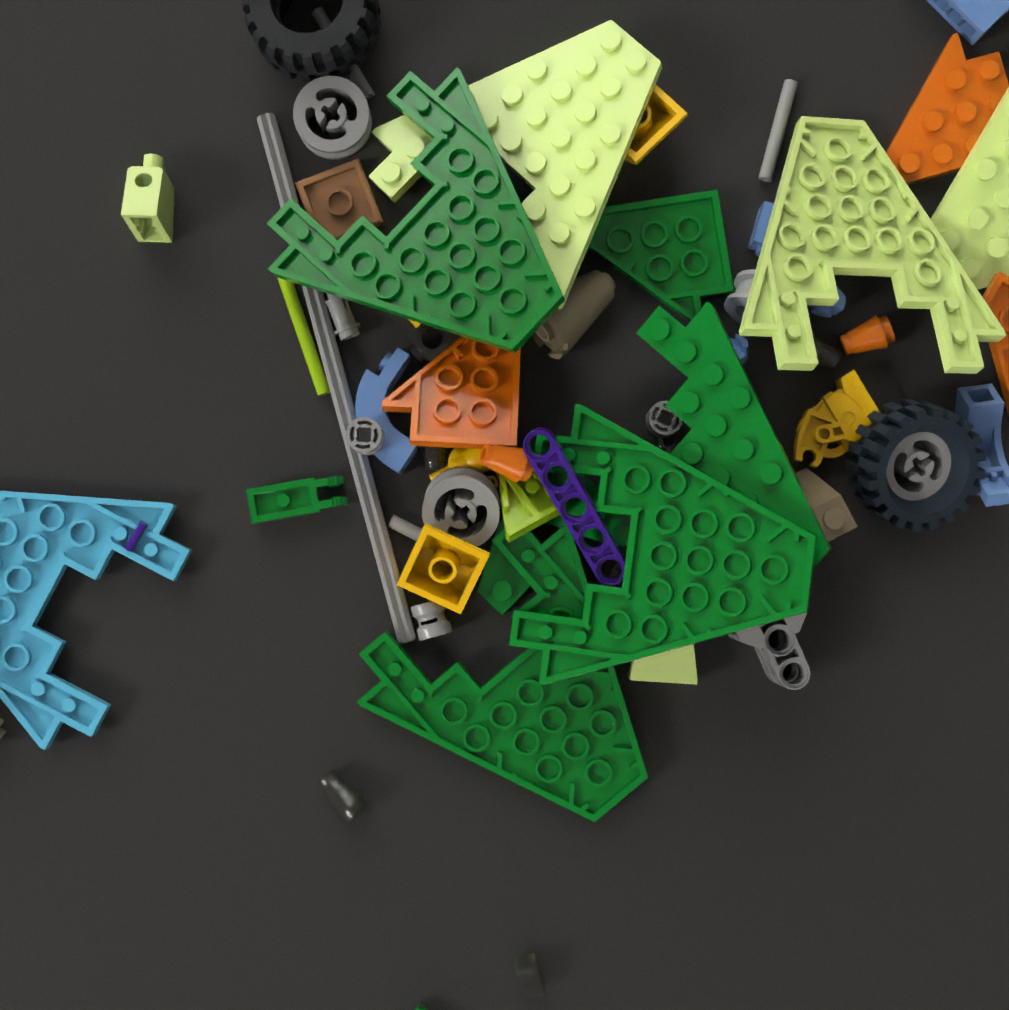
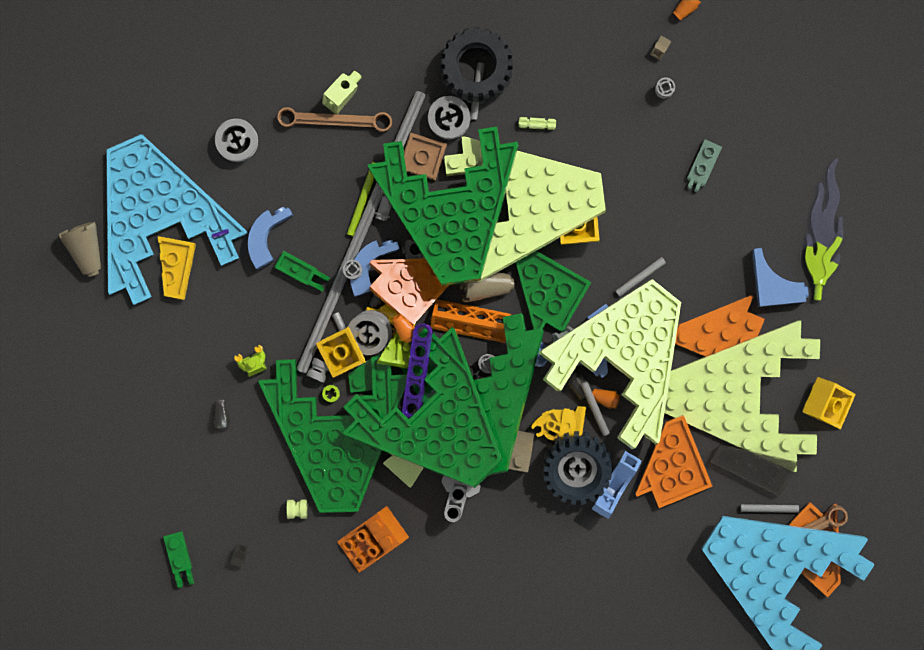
camera: 40 degrees right, 0 degrees up
(66, 363) = (223, 147): none -> light grey wheel
(109, 630) = (176, 266): none -> yellow wing
(173, 249) = (334, 119): none -> medium nougat piece
(193, 493) = (258, 236): none -> medium blue arch
(330, 687) = (254, 364): none -> lime piece
(463, 31) = (537, 123): none -> yellowish green axle
(484, 643) = (333, 399): none -> lime bush
(558, 843) = (296, 509): none -> yellowish green wheel
(594, 383) = (469, 324): none -> orange fence
(701, 798) = (373, 539): none -> orange slope
(865, 362) = (595, 409): none -> light grey piece

